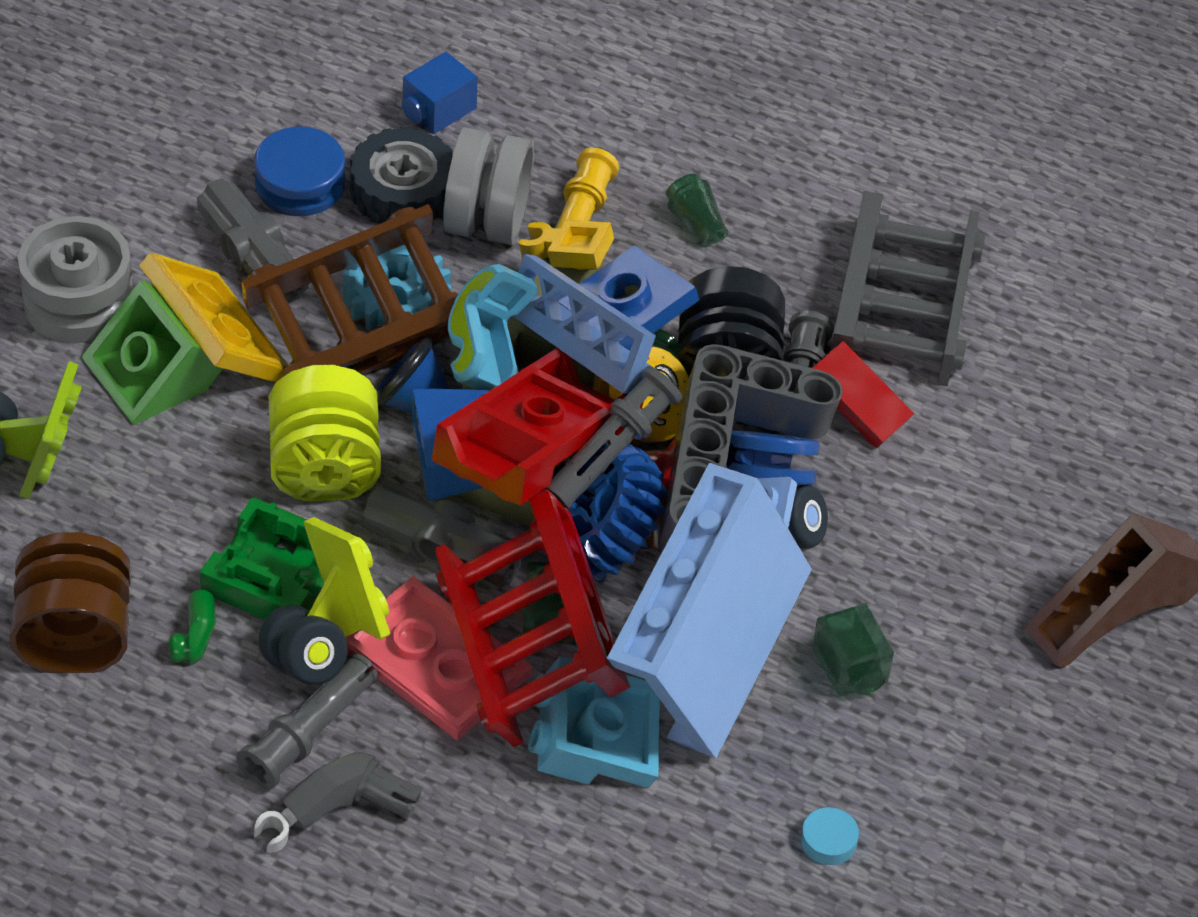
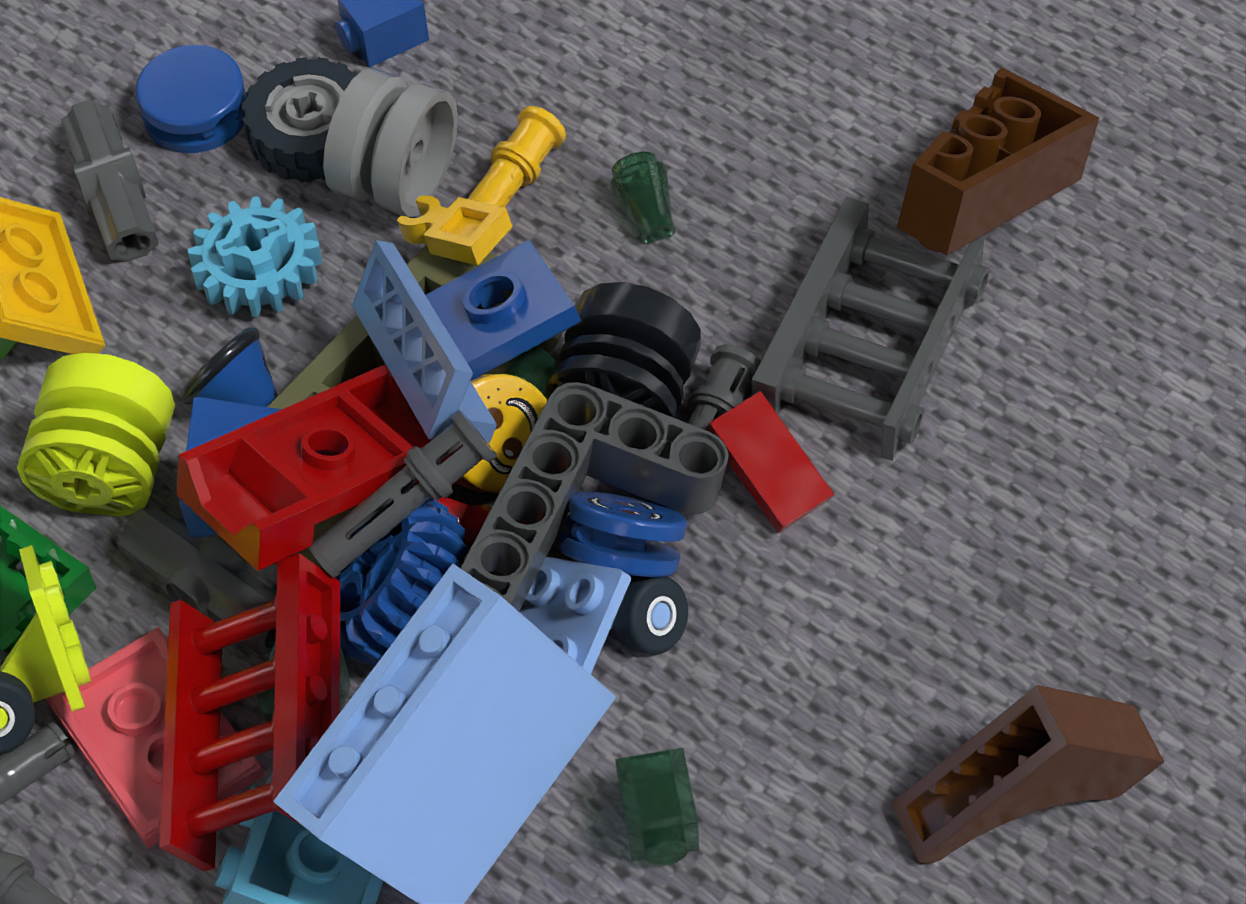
camera: 20 degrees right, 5 degrees up
(355, 348) = (176, 332): reddish brown fence -> none
(480, 325) = (311, 327): medium azure animal -> none
(976, 152) = (995, 163): none -> reddish brown wedge

